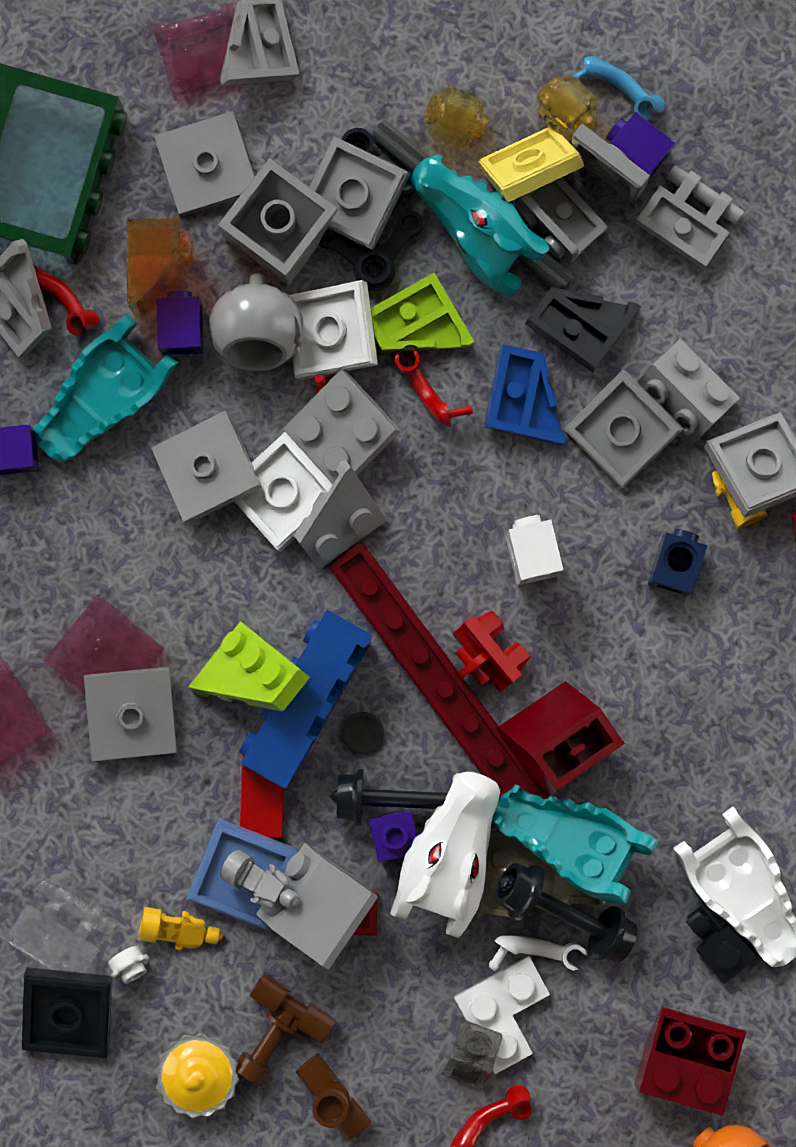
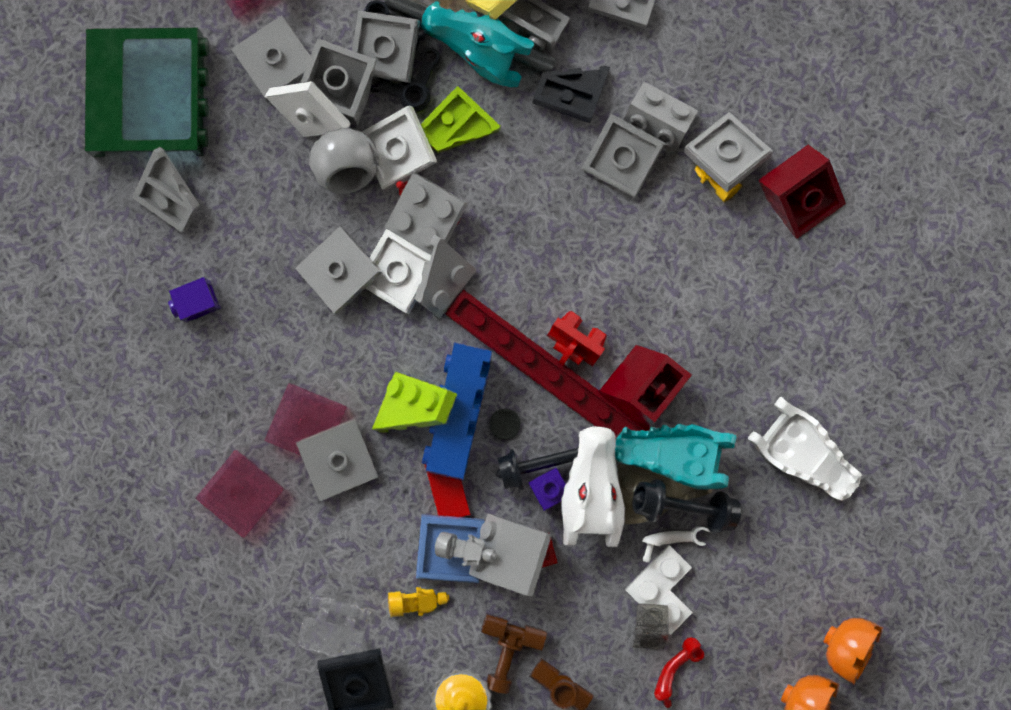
camera: 20 degrees left, 0 degrees up
(78, 317) = (216, 192): red piece -> none
(103, 389) = (248, 237): teal animal -> none
(129, 964) = (389, 637): white plate -> none
(155, 261) = (259, 135): clear orange slope -> none
(179, 324) = (289, 175): dark purple brick -> none
(228, 246) = (307, 108): none -> white plate
(428, 395) = (478, 173): red piece -> none
(522, 397) = (546, 155): blue wing -> none
(533, 550) = (587, 259): white brick -> none
(664, 576) = (687, 251): dark blue brick -> none
(690, 1060) = (804, 583): dark red slope -> none
(722, 947) = (802, 498): black plate -> none

